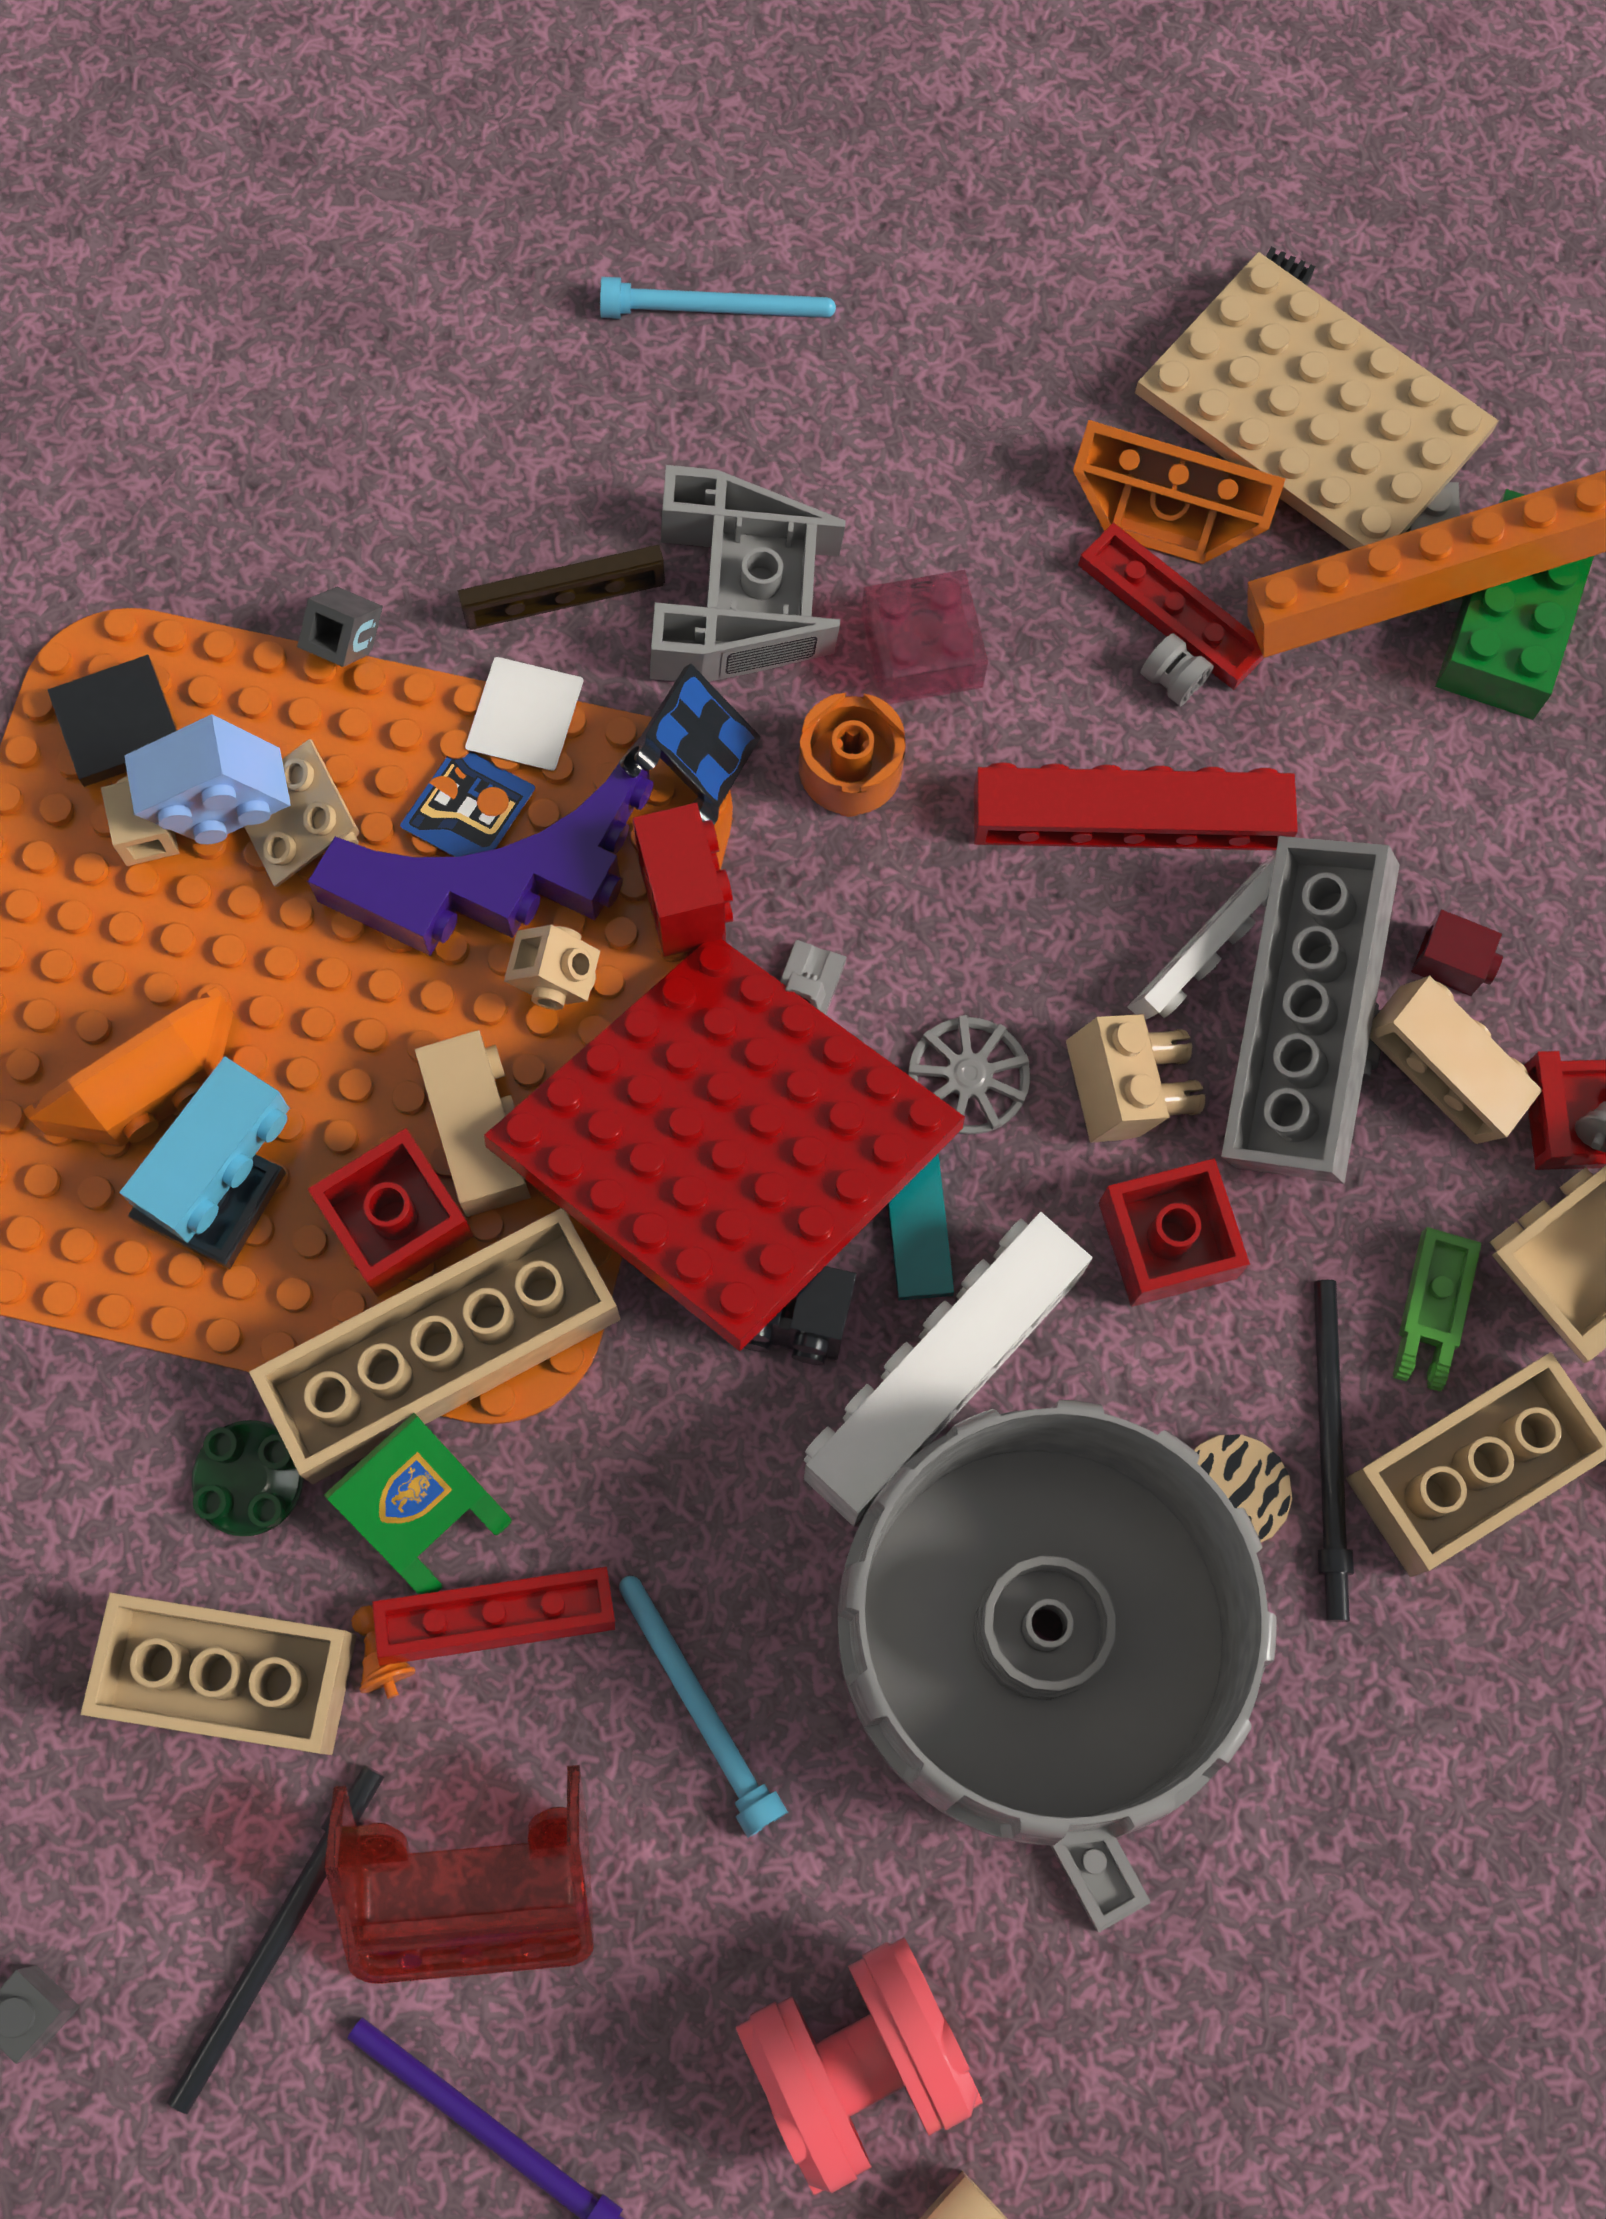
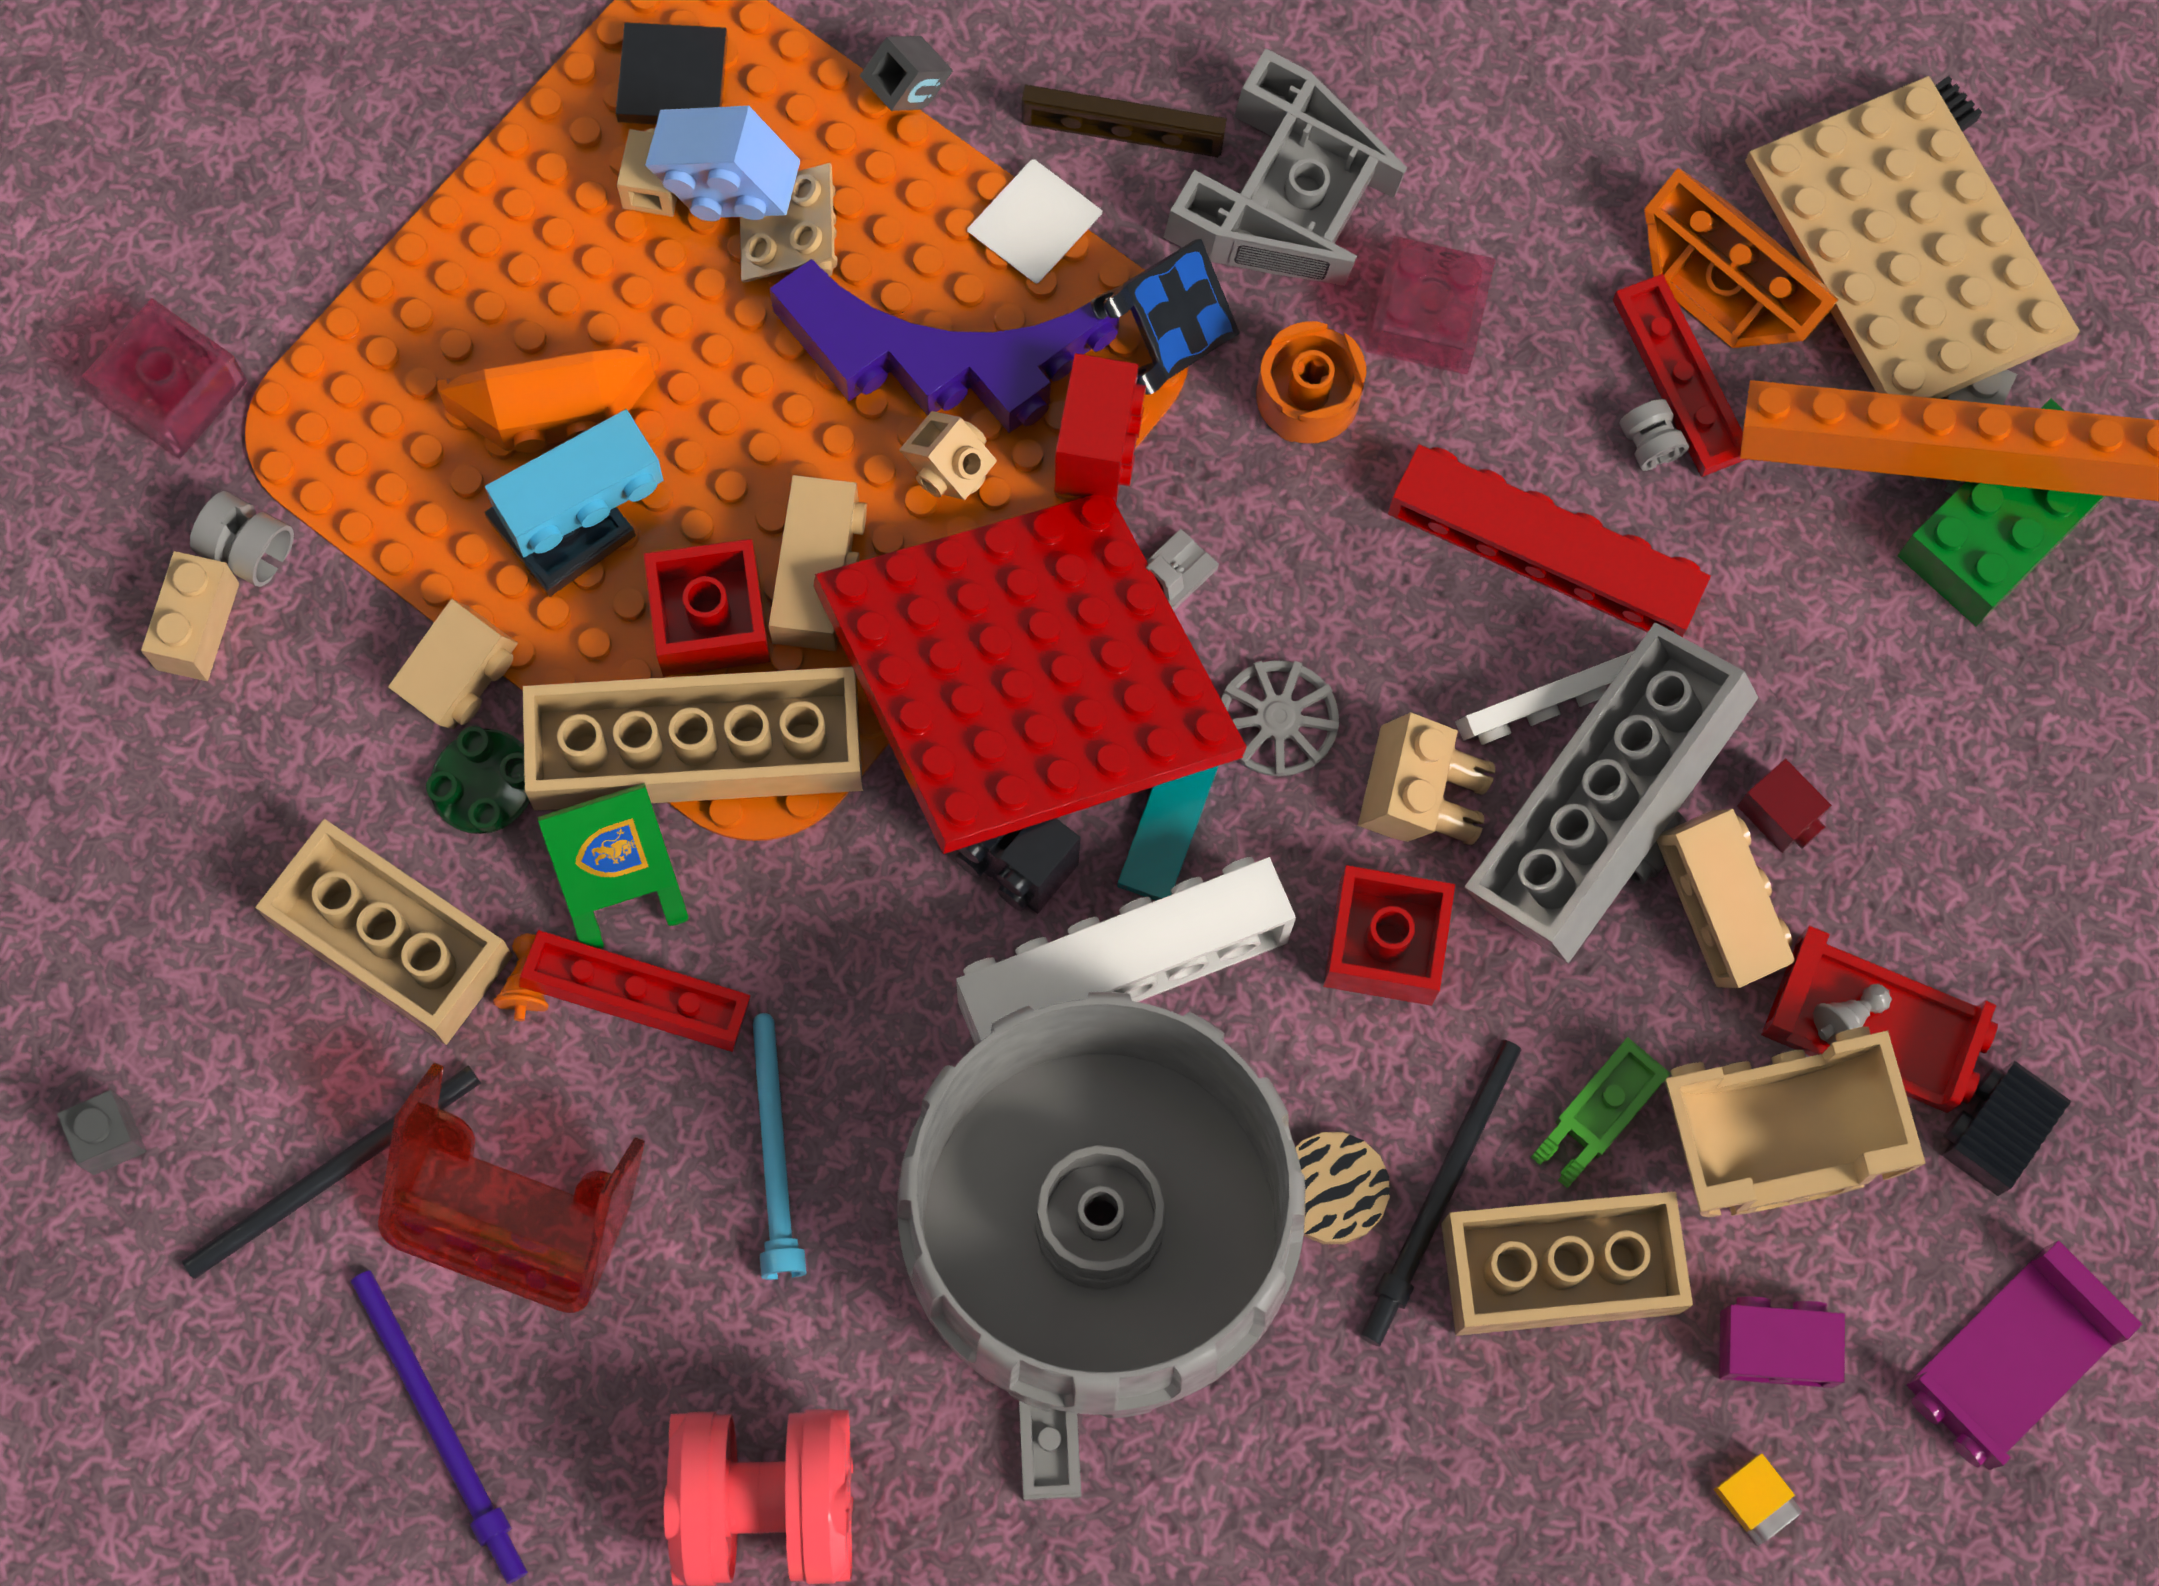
camera: 25 degrees right, 0 degrees up
(168, 1379) = (454, 665): none -> tan brick
(458, 823) = (929, 295): sticker -> none

